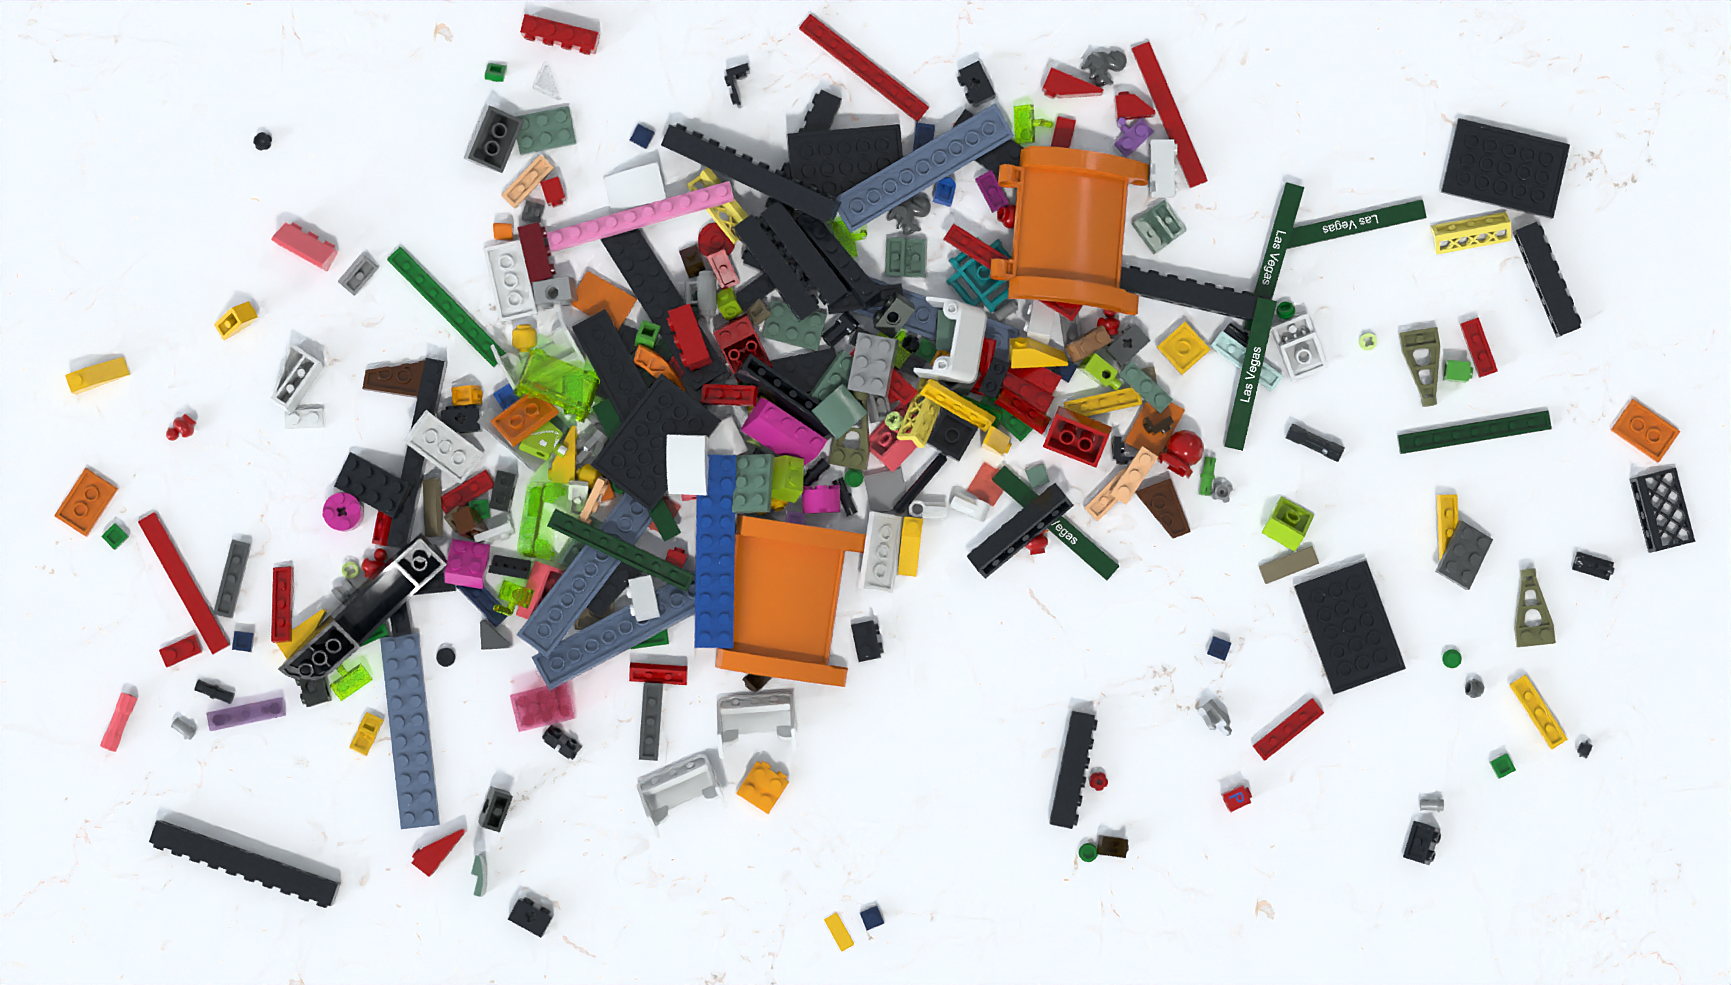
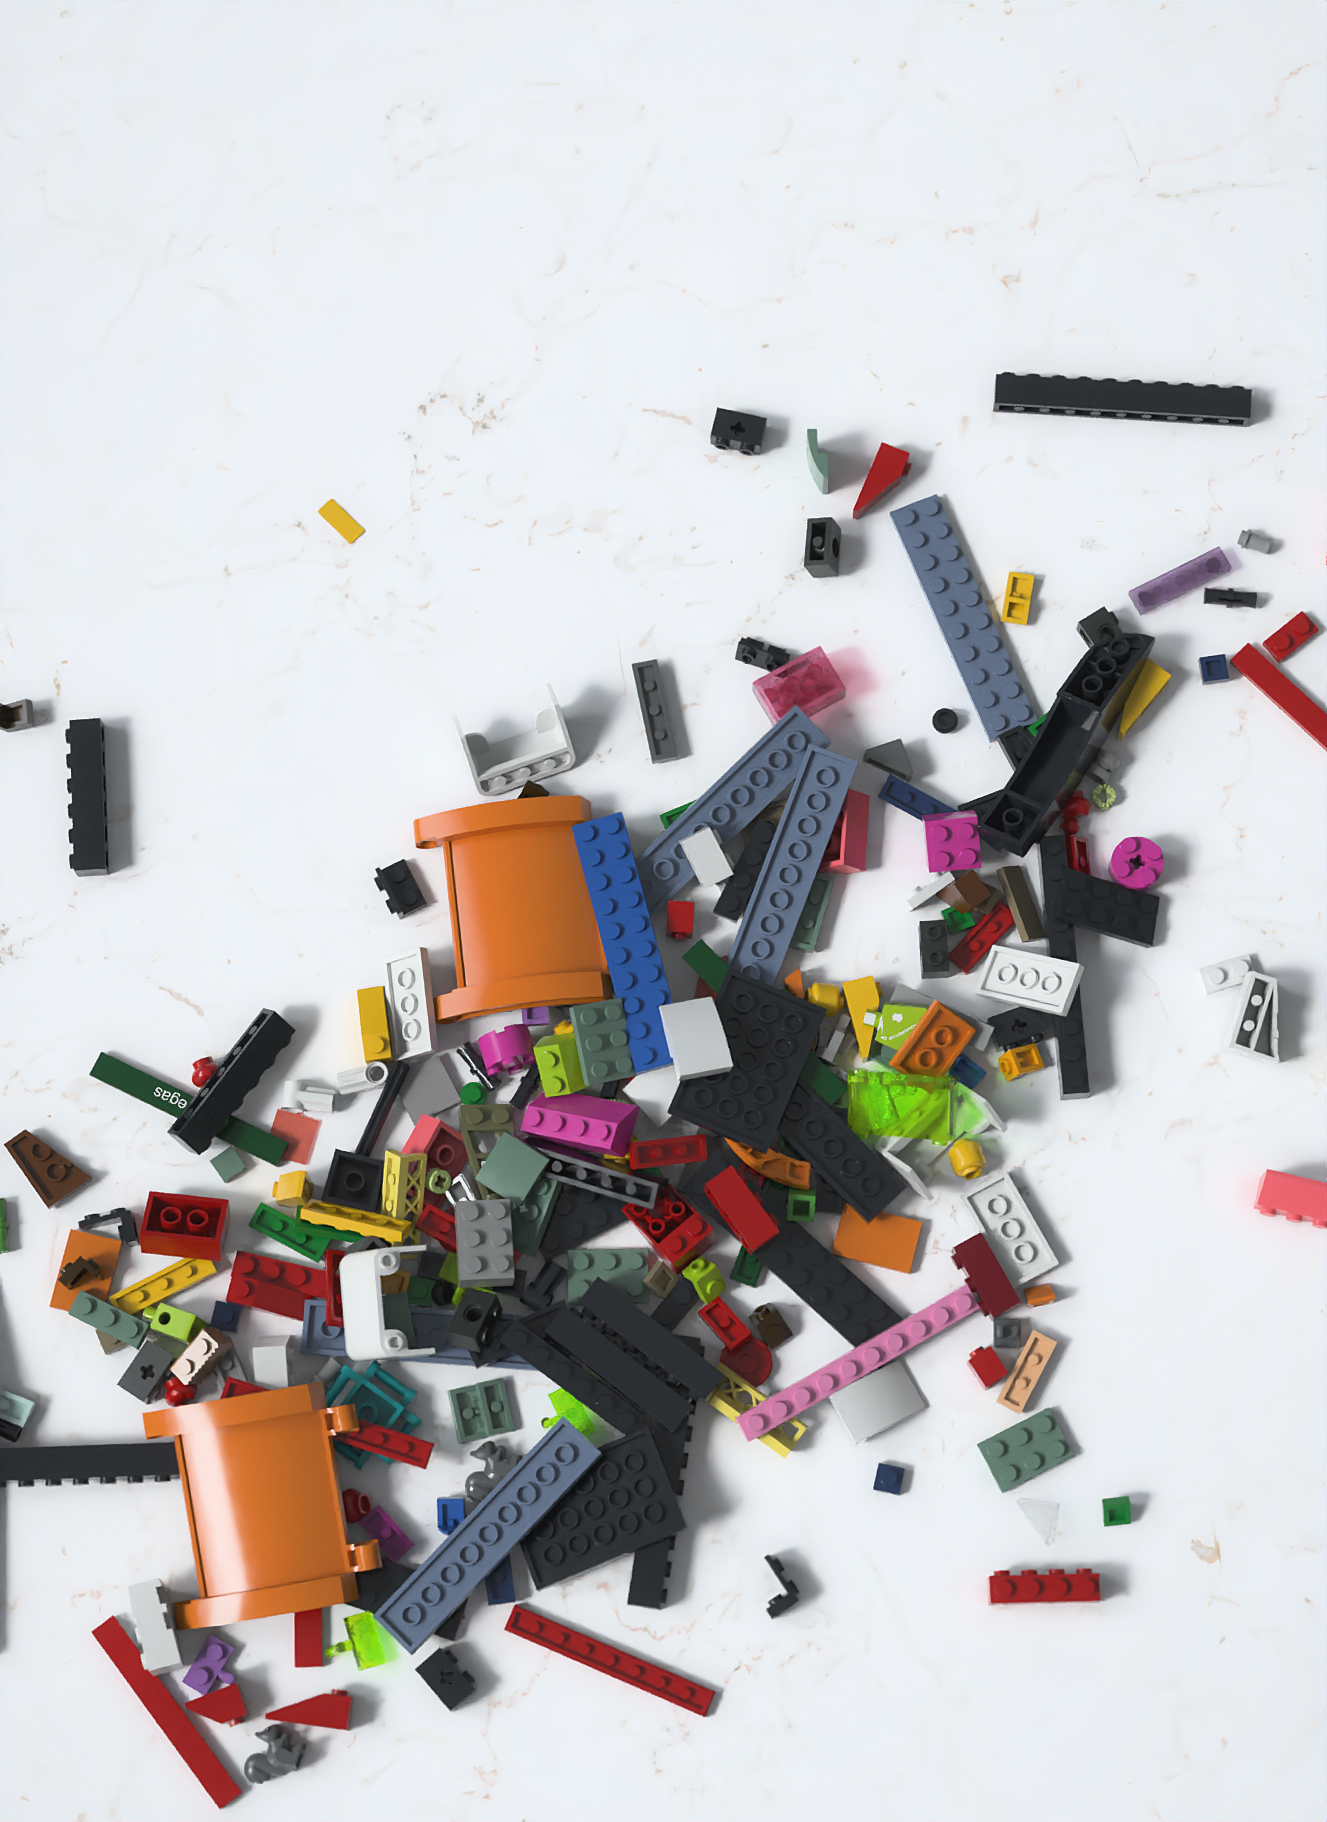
camera: 165 degrees right, 10 degrees down
(232, 579) = (1253, 743): dark grey plate -> none
(282, 604) = (1177, 726): red tile -> none
(350, 681) = (1058, 655): clear neon green plate -> none
(358, 274) = (1217, 1184): light grey slope -> none
(395, 380) = (1120, 1057): reddish brown wing -> none
(445, 305) = (1087, 1175): green tile -> none
(493, 139) = (1090, 1415): dark grey slope -> none
(510, 567) = (895, 854): black bracket -> none
(515, 596) = (875, 819): clear neon green plate -> none
(528, 542) = (885, 954): clear neon green windscreen -> none
(544, 292) = (932, 1240): light grey brick -> none
(577, 497) = (832, 965): white plate -> none
(592, 503) = (809, 958): light nougat plate -> none
(620, 550) = (754, 909): dark green tile -> none
(658, 673) = (661, 773): red plate -> none
(677, 786) = (599, 640): white windscreen -> none
(706, 294) = (738, 1282): light grey piece -> none
(751, 173) = (721, 1460): black brick -> none
(763, 786) = (486, 670): light orange plate -> none
(872, 918) = (303, 548): dark blue plate -> none
(994, 377) = (316, 1274): black hinge -> none
(1022, 410) = (268, 1244): red tile -> none
(1032, 353) = (270, 1321): yellow slope -> none
(1088, 852) = (44, 701): green plate -> none
(1103, 781) = (54, 799): red plate -> none
(1104, 501) = (123, 1165): light nougat plate -> none
(1134, 475) = (96, 1196): light nougat plate -> none
(1159, 227) = (143, 1548): sand green slope -> none
(1183, 348) = (70, 1389): yellow plate -> none
(1183, 450) = (37, 1247): red tile -> none

